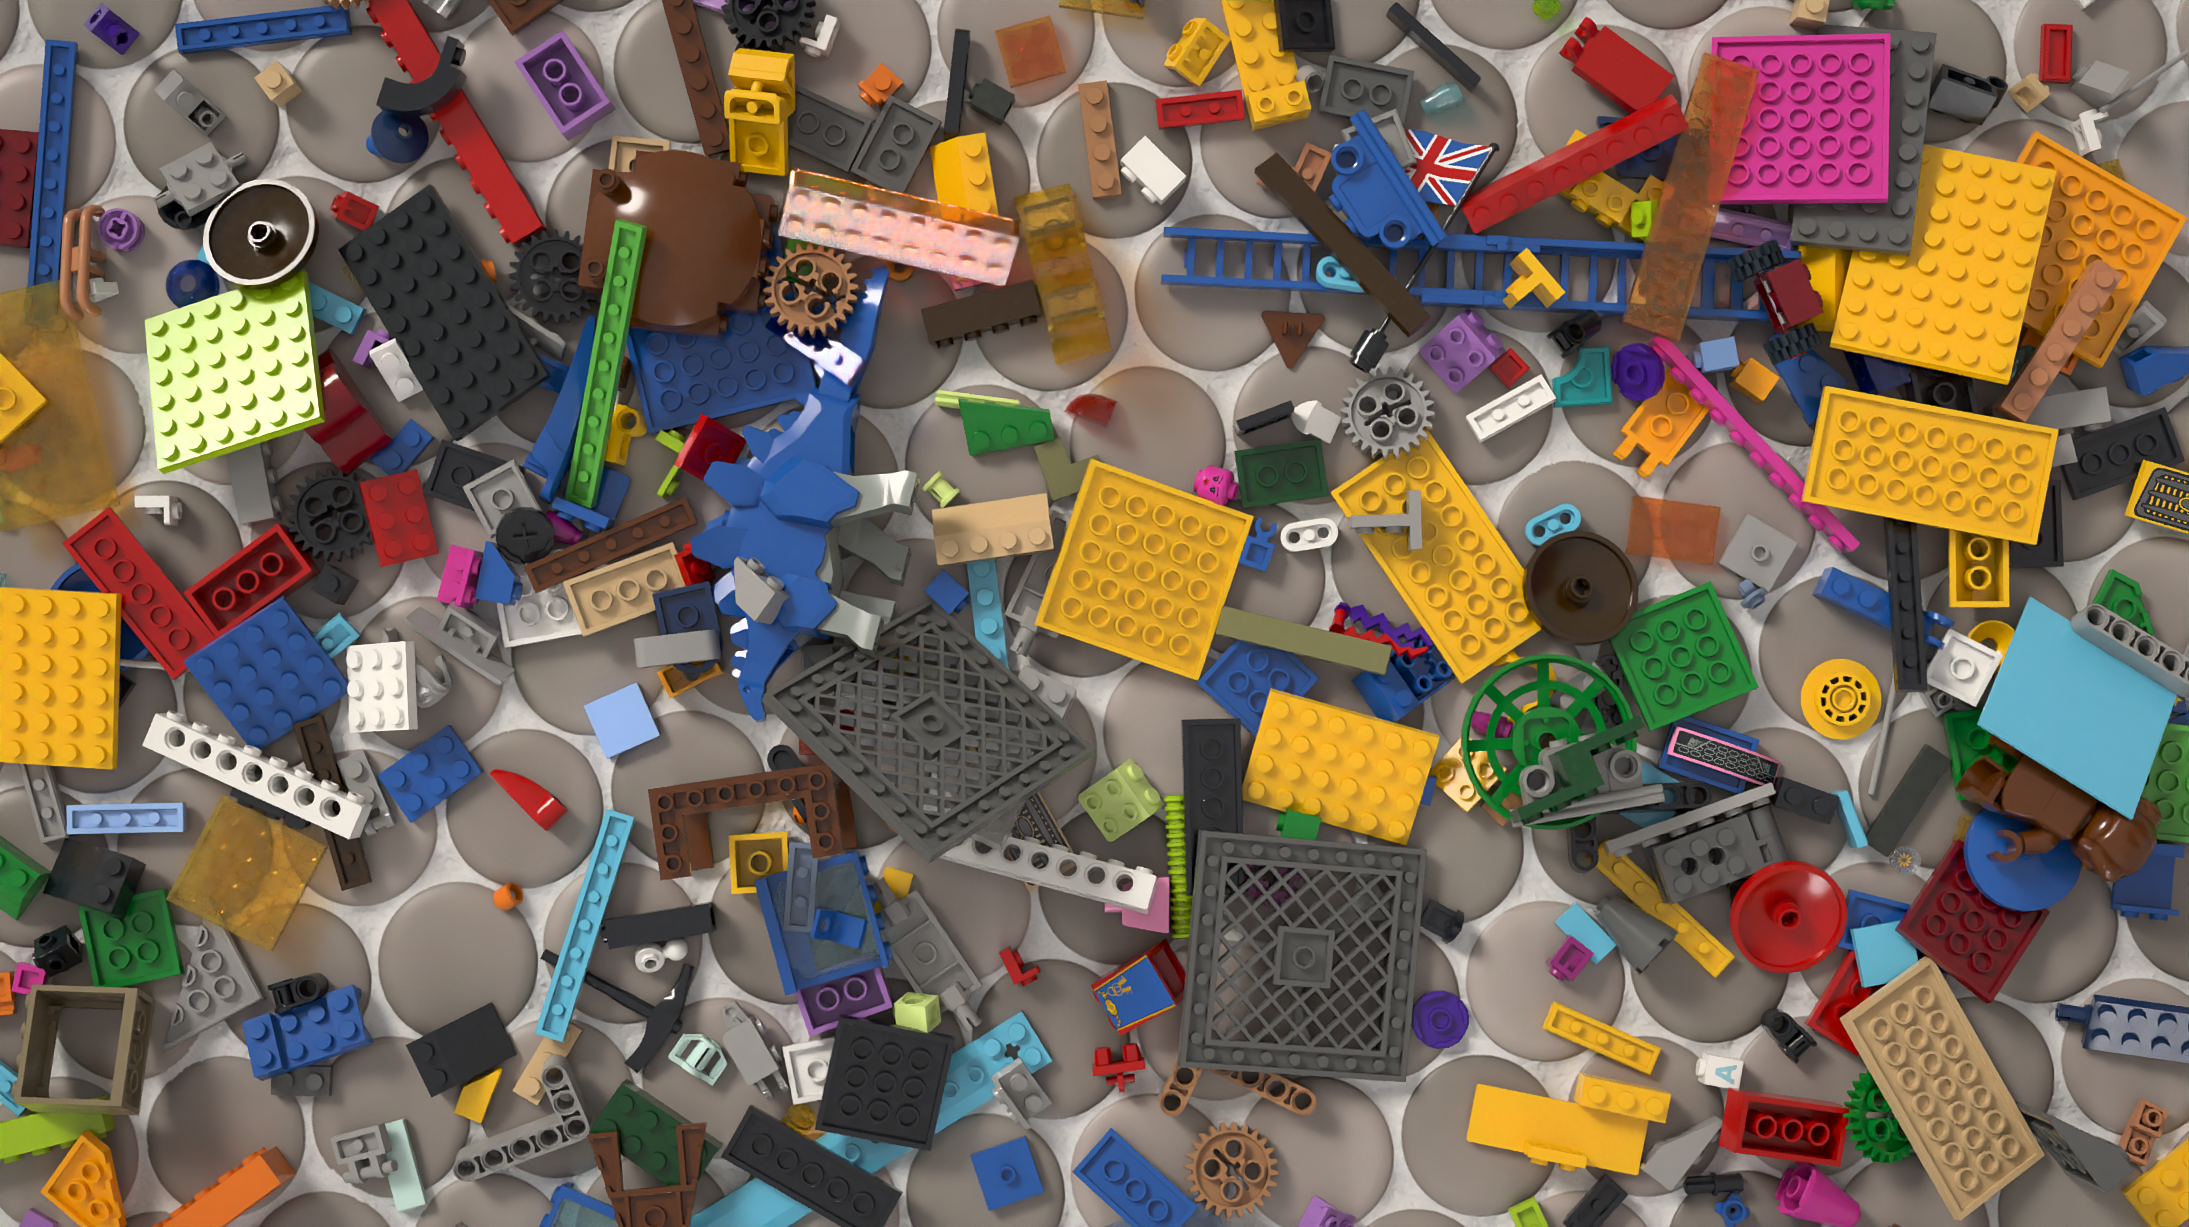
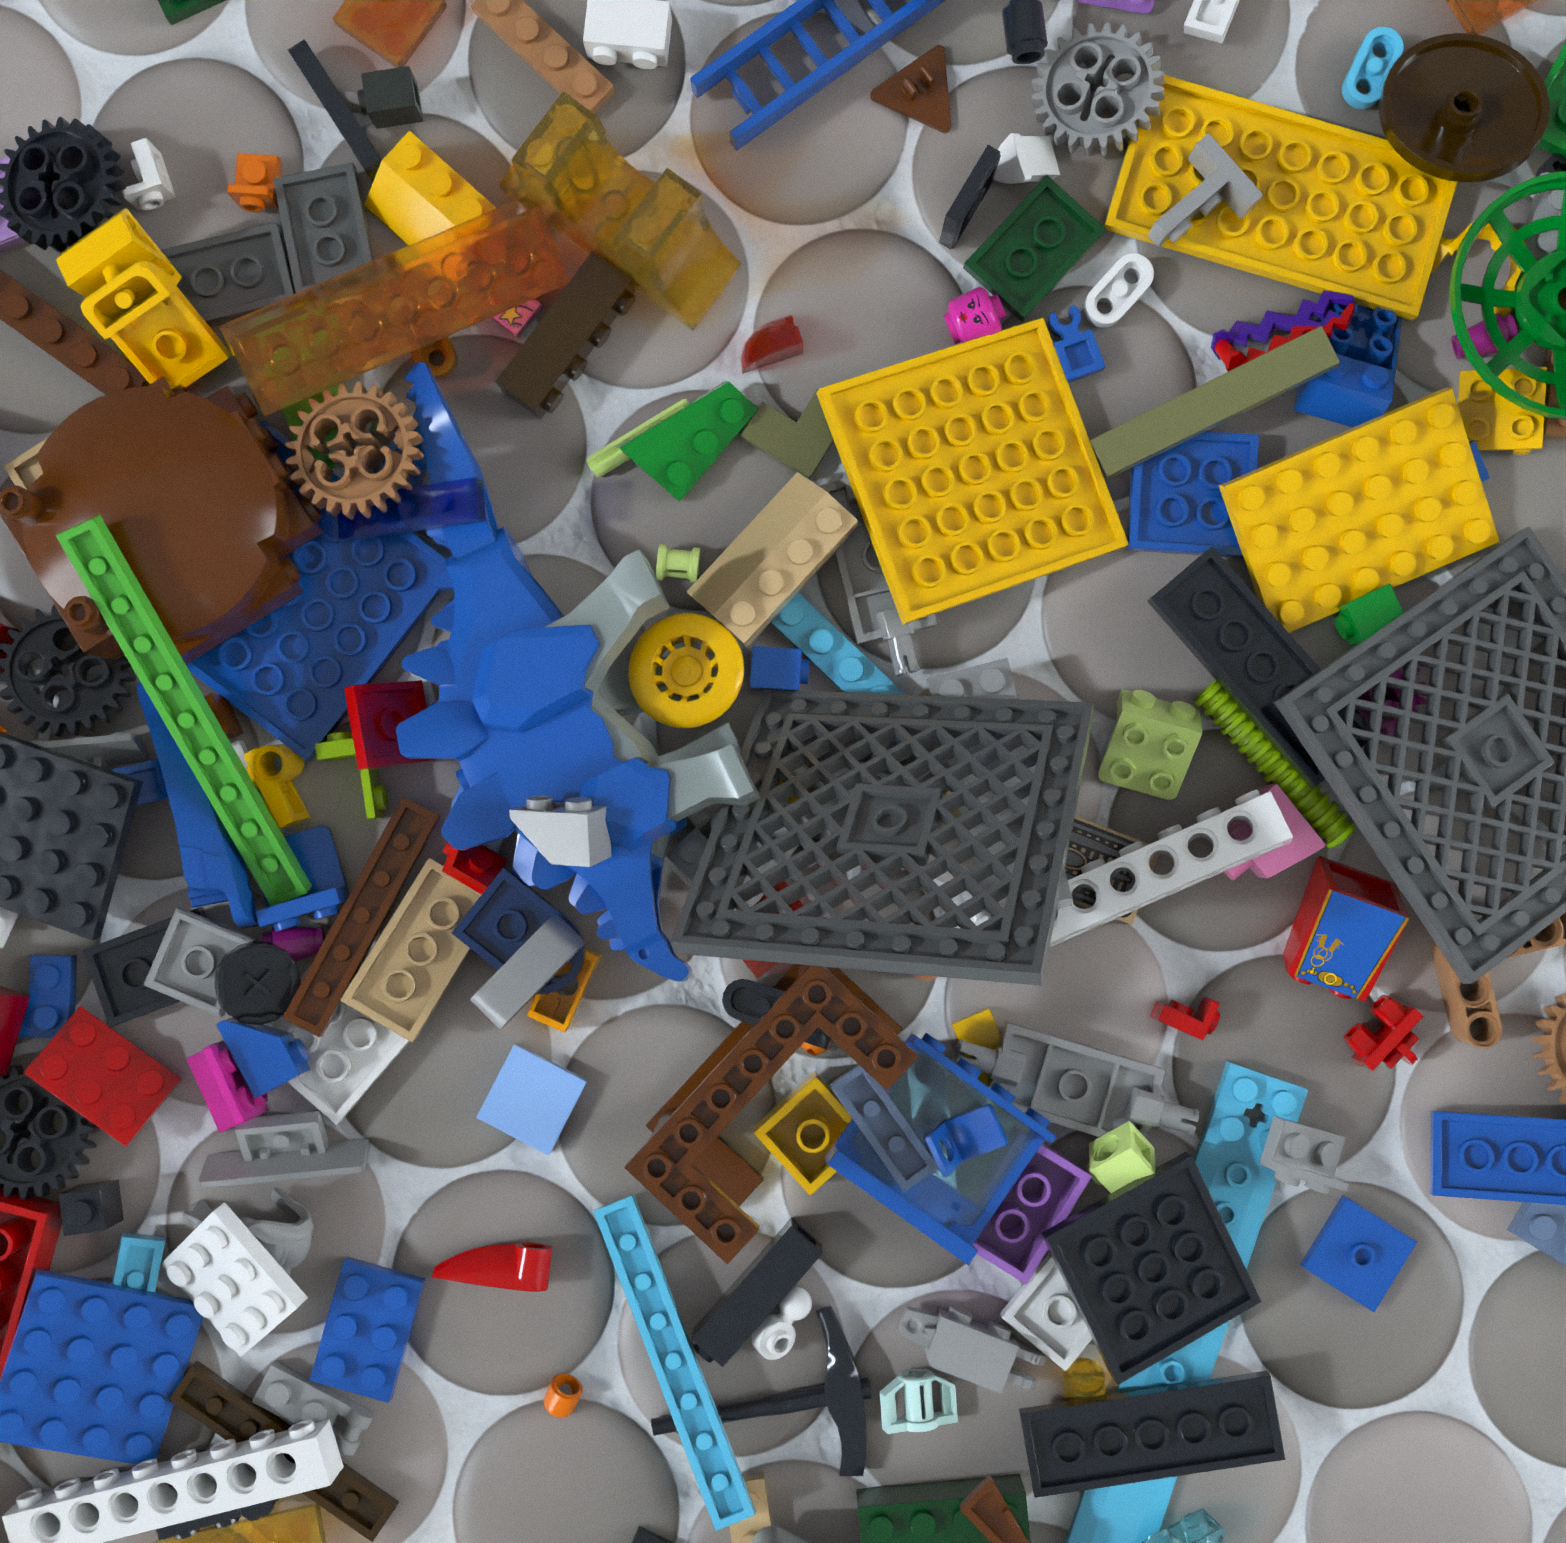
camera: 30 degrees left, 0 degrees up
(894, 554) = (686, 670): none -> yellow wheel

